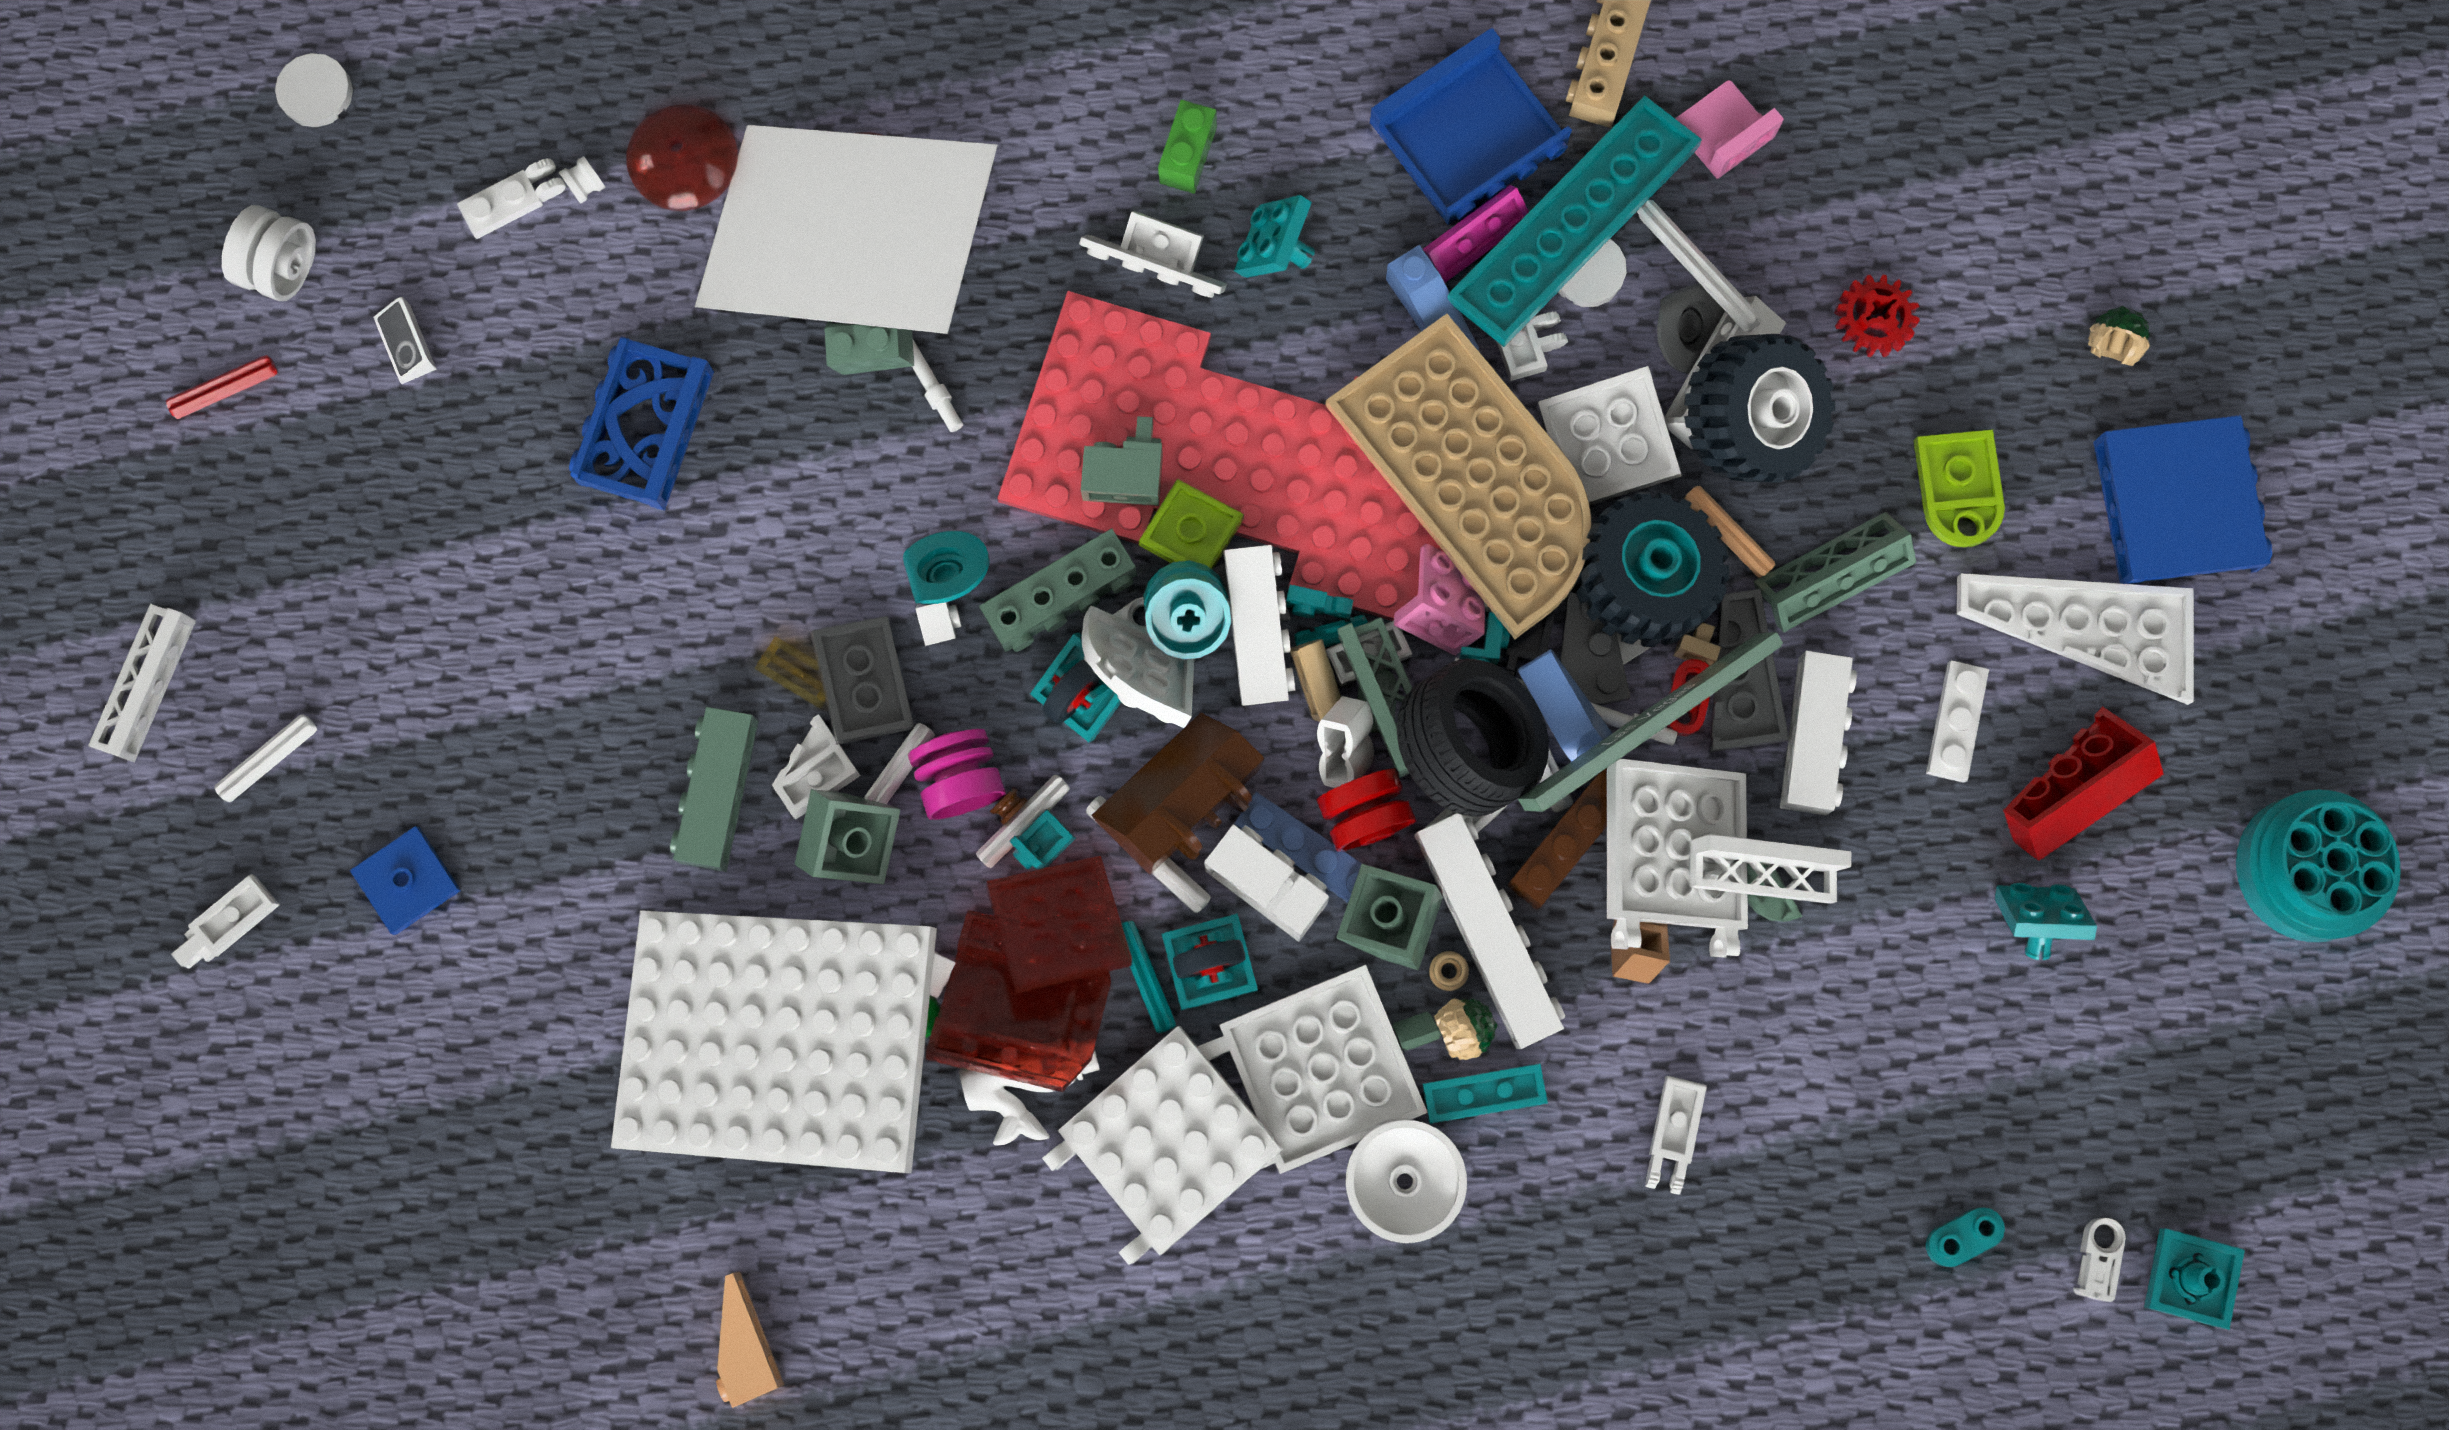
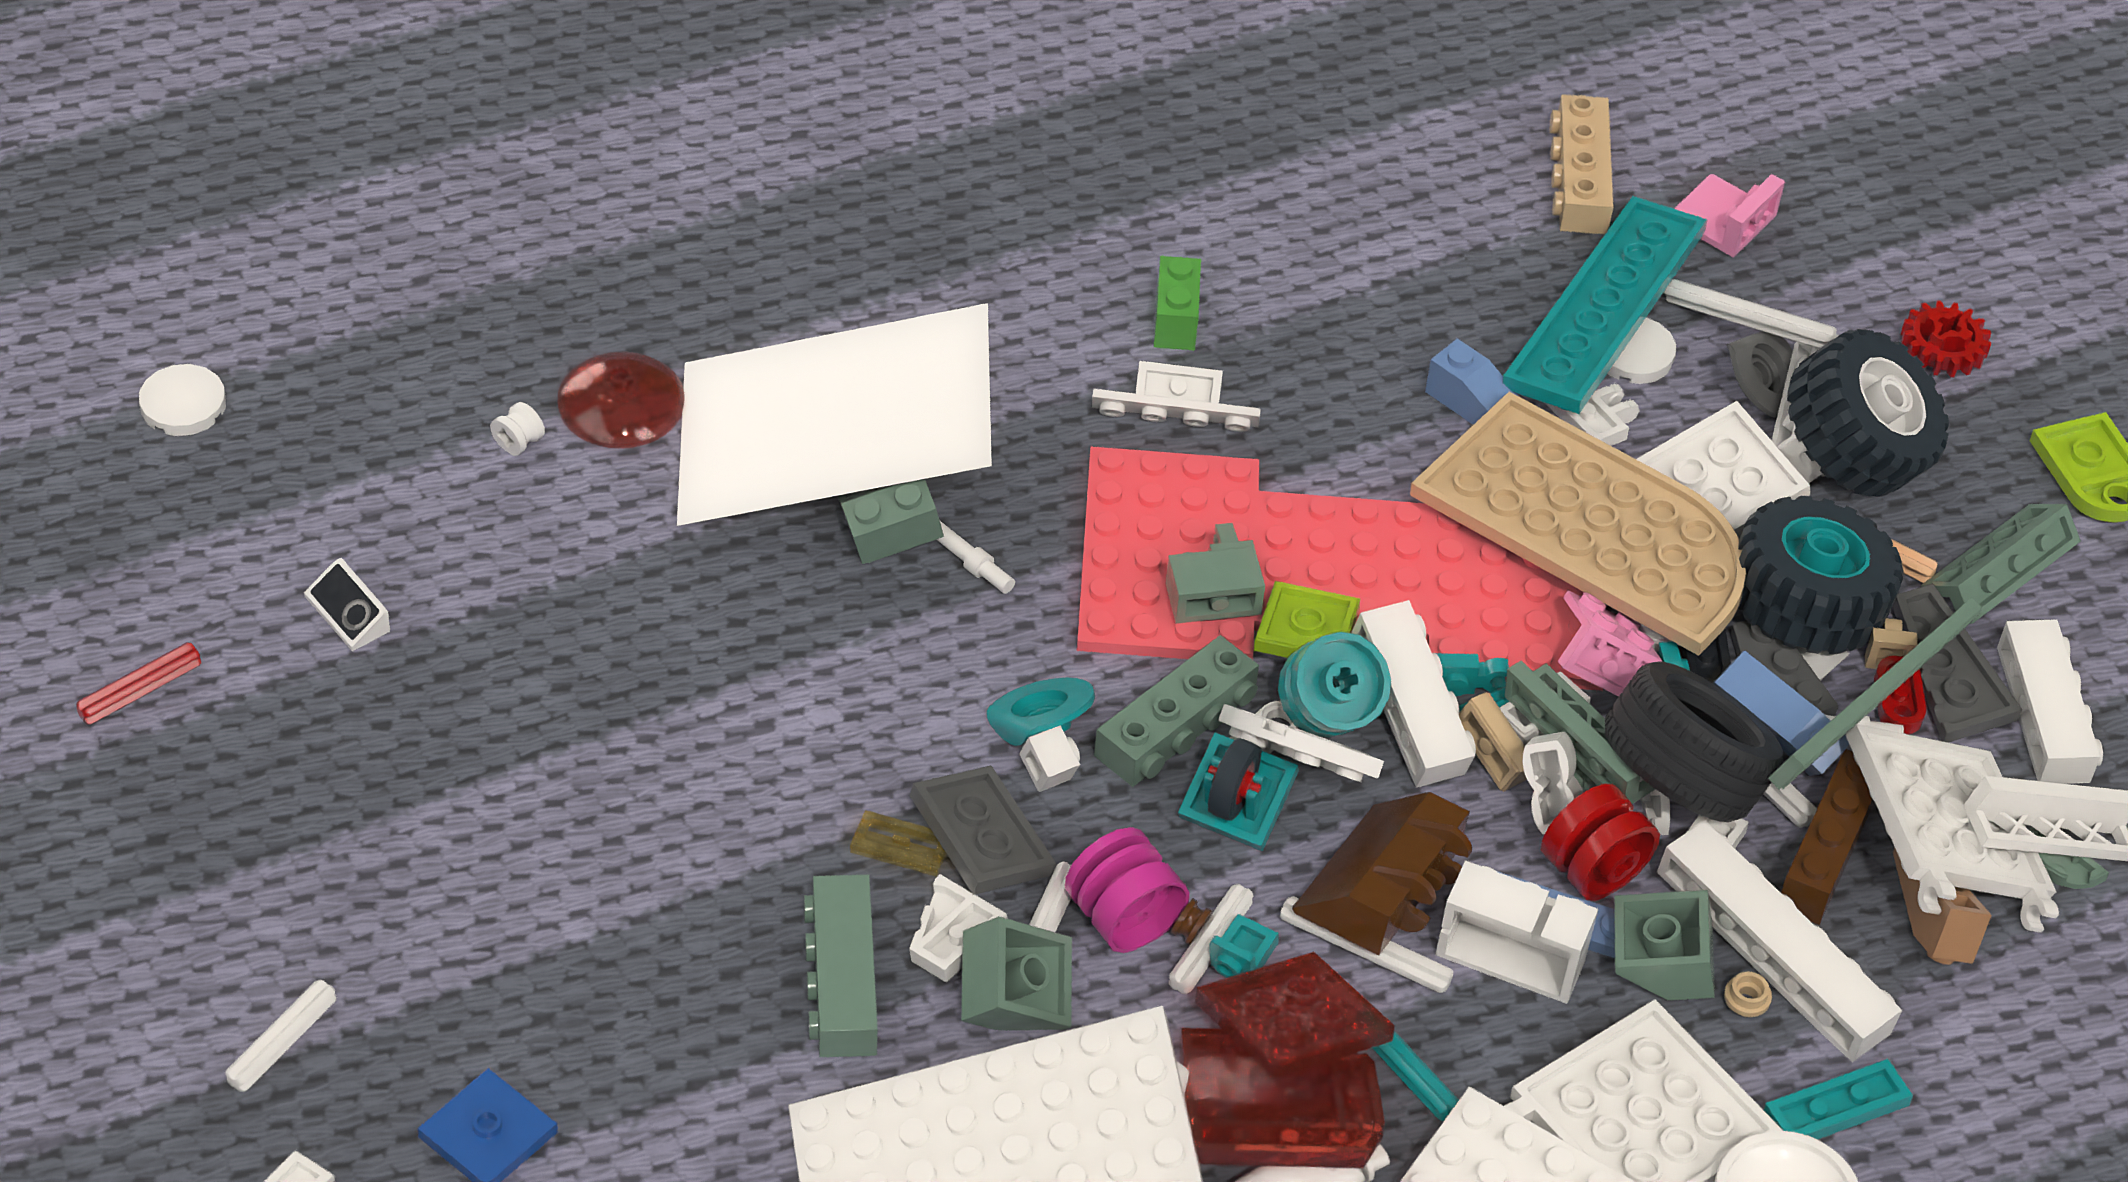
camera: 20 degrees left, 30 degrees down
(148, 683) = (117, 990): white fence -> none
(268, 252) = (177, 535): white wheel -> none
(510, 198) = (437, 461): white hinge -> none
(610, 405) = (681, 680): blue fence -> none
(1209, 962) = (1478, 1030): teal plate -> none
(1274, 238) = (1301, 360): teal plate -> none
(1416, 1031) = (1744, 1059): sand green slope -> none
(1466, 1027) = (1793, 1034): tan piece -> none
(1468, 128) = (1461, 251): blue panel -> none
(1476, 233) = (1512, 326): dark pink plate -> none
(1675, 1130) = (2064, 1101): white hinge -> none

